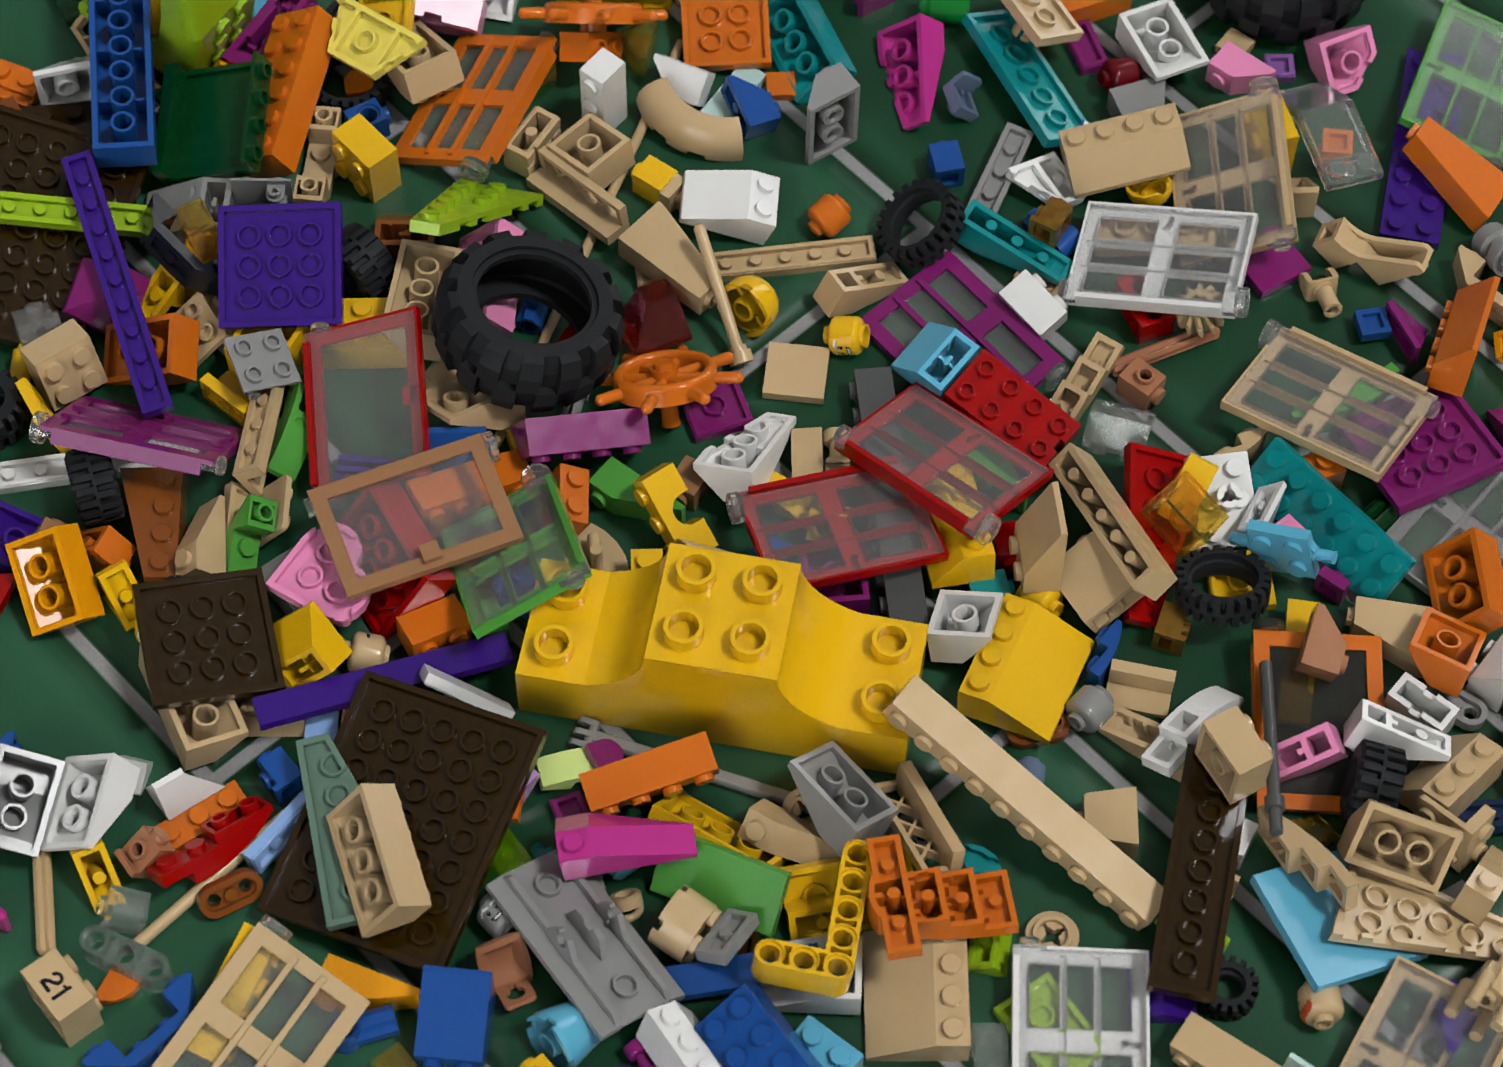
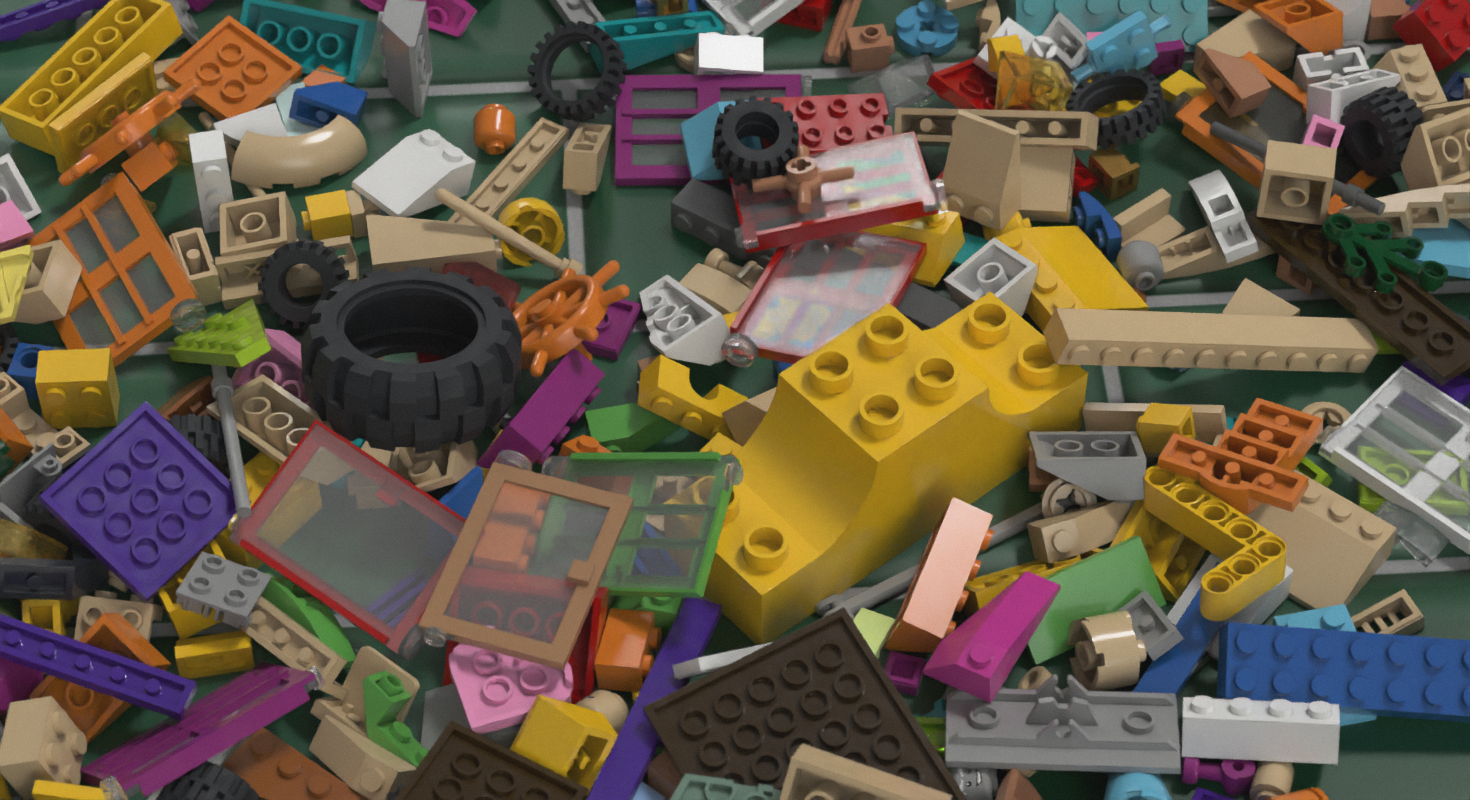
camera: 50 degrees left, 10 degrees down
(371, 279) = (223, 392): none -> light grey bar
(583, 203) = (275, 272): none -> black tyre
(603, 752) = (878, 608): magenta tile -> none
(796, 373) = (624, 242): tan tile -> none
(846, 335) = (625, 191): yellow head -> none
(916, 828) = (1161, 422): none -> yellow brick
(926, 433) = (803, 179): none -> nougat bar
(928, 355) = (760, 120): none -> black tyre
(946, 163) = (526, 27): blue brick -> none
(1087, 376) = (824, 64): tan slope -> none
(1190, 416) = (926, 16): none -> dark azure plate
(1235, 858) = (1381, 249): none -> dark green plant

